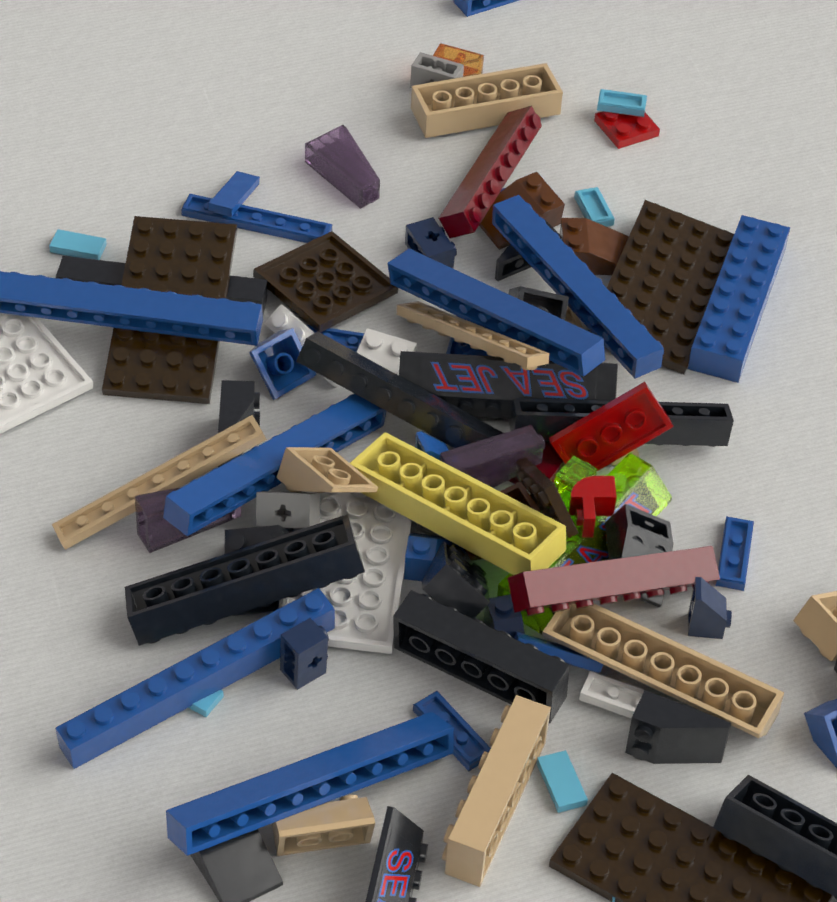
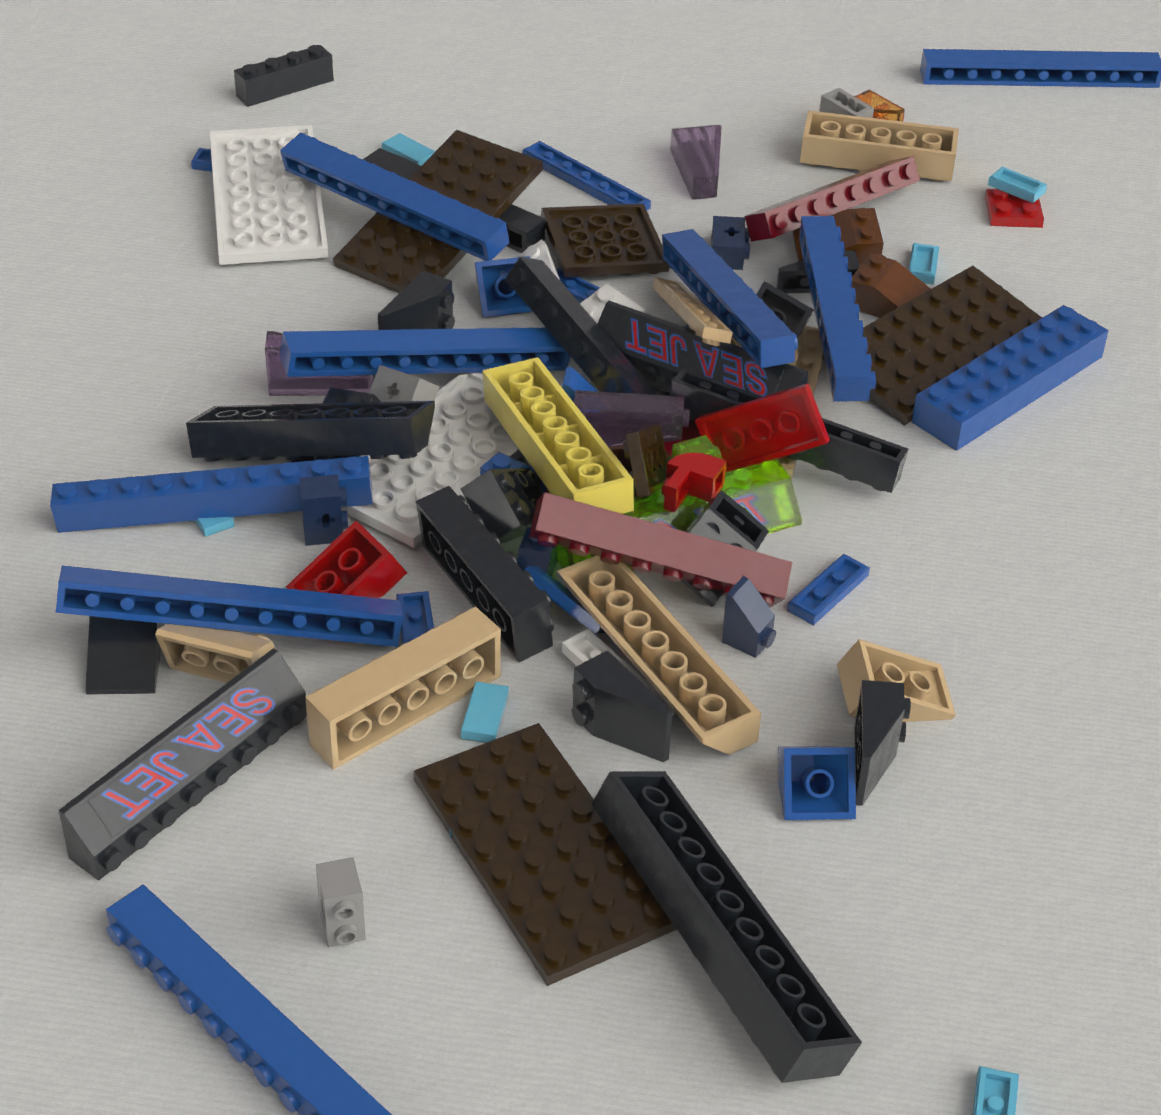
camera: 30 degrees right, 5 degrees down
(166, 476) = (251, 343): tan plate -> none
(233, 193) = (577, 151): blue tile -> none
(320, 472) = (449, 367): tan slope -> none
(362, 701) = (351, 566): none -> red slope

